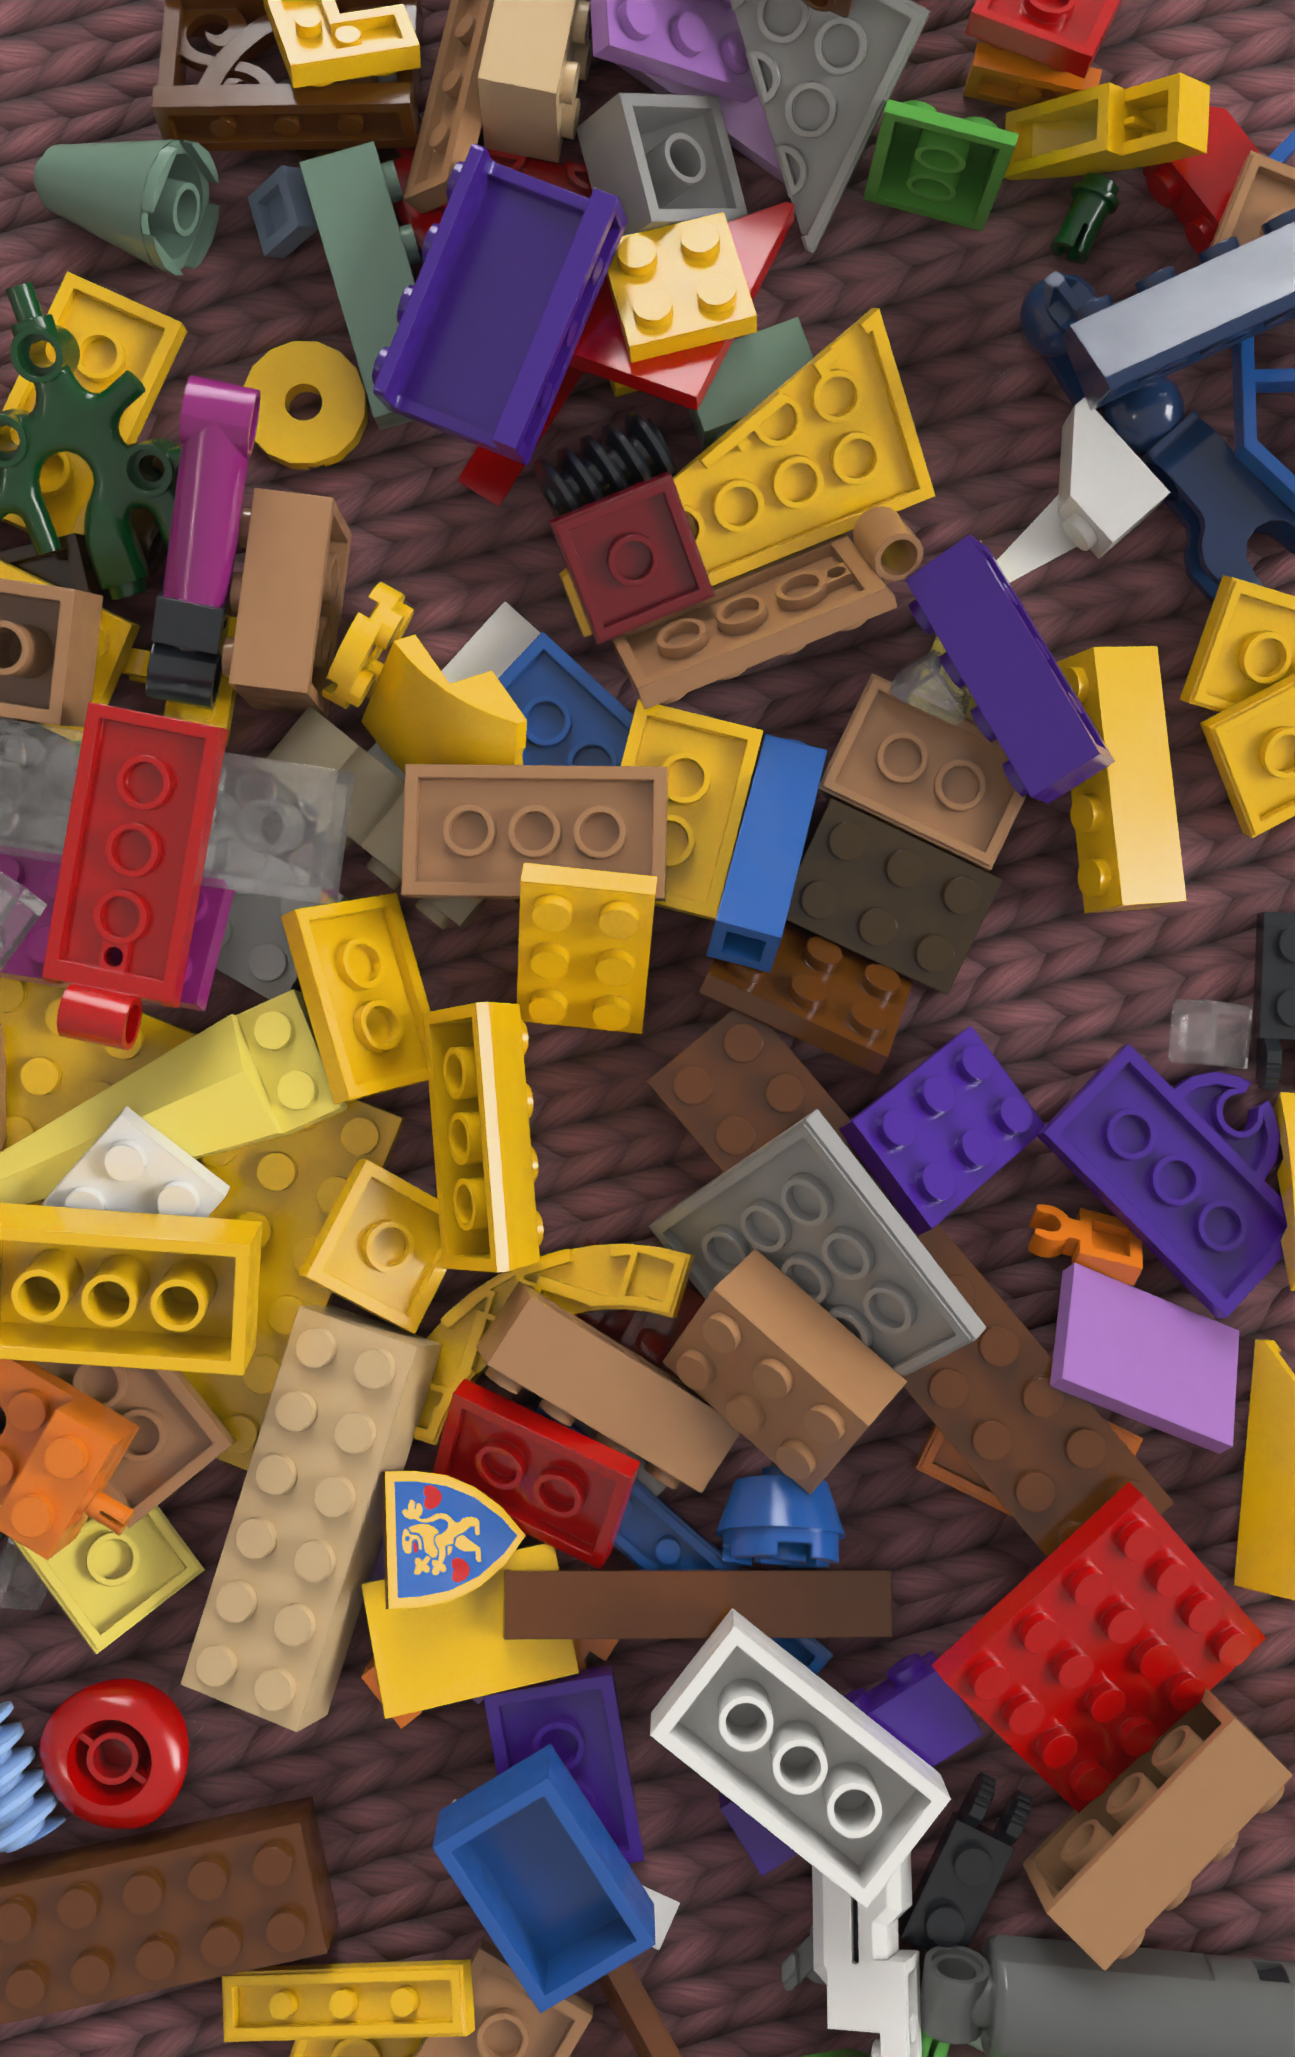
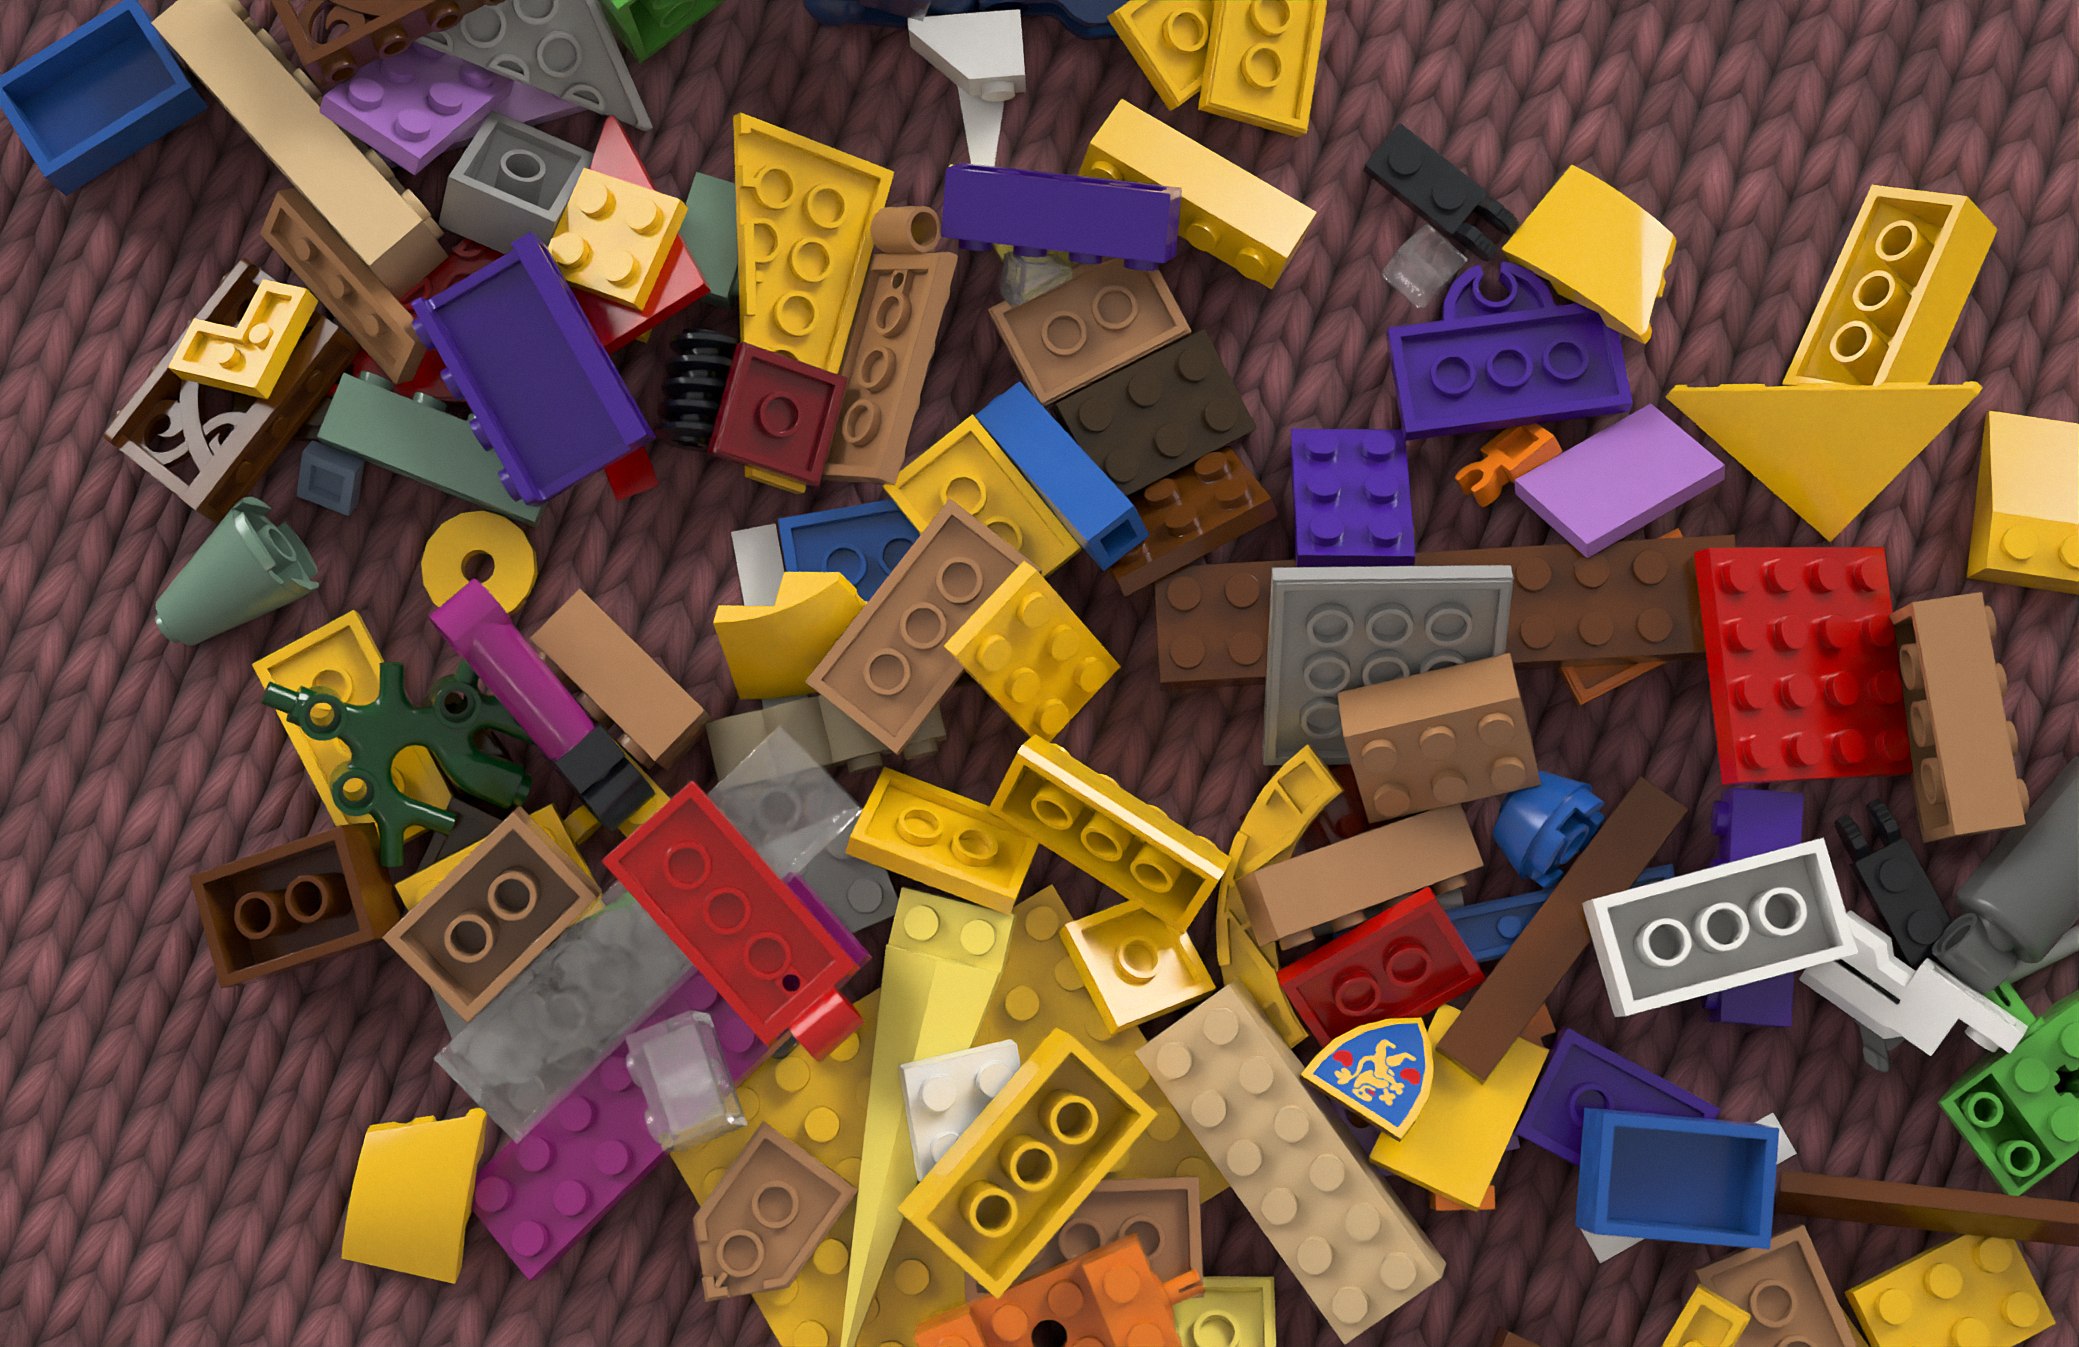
camera: 55 degrees left, 5 degrees down
(356, 662) = (687, 635): yellow plate -> none

